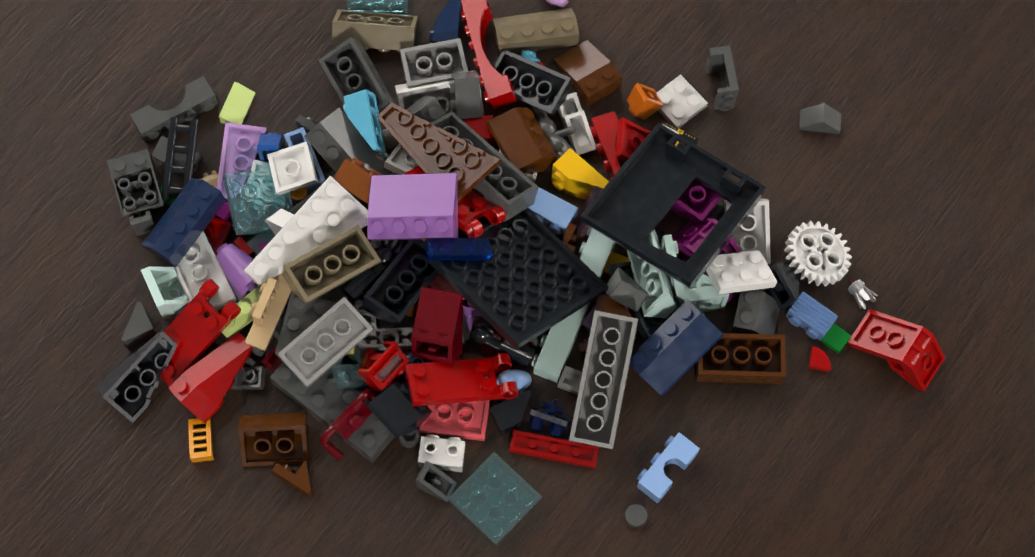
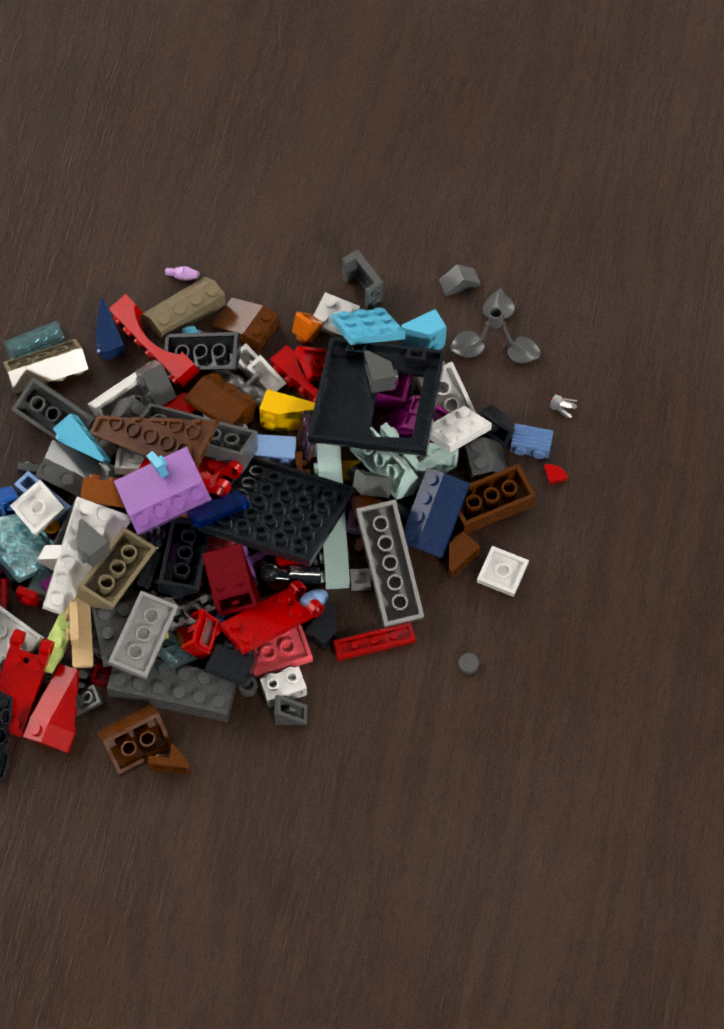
camera: 25 degrees left, 5 degrees down
(204, 455) = (80, 780): light orange slope -> none
(233, 263) = (30, 612): medium lavender cone -> none
(315, 230) = (91, 545): none -> dark grey slope
(348, 422) = (193, 694): dark red piece -> none
(419, 178) = (158, 464): none -> medium azure plate
(432, 62) = (111, 370): light grey slope -> none
(494, 498) = (345, 702): clear light blue plate -> none
(558, 423) = (349, 620): clear blue hips -> none
(678, 451) = (478, 597): light blue arch -> none
(683, 399) = (460, 553): none -> reddish brown slope
(687, 182) = (379, 372): none -> dark grey slope
(702, 127) = (367, 326): none -> medium azure plate
(716, 436) = (502, 571): none -> white plate
(757, 158) = (425, 331): none -> medium azure slope
(822, 250) = (511, 388): white gear -> none
(836, 338) = (559, 450): green tile -> none
(843, 164) = (496, 309): none -> dark grey plant
(905, 345) = (619, 429): red bracket -> none

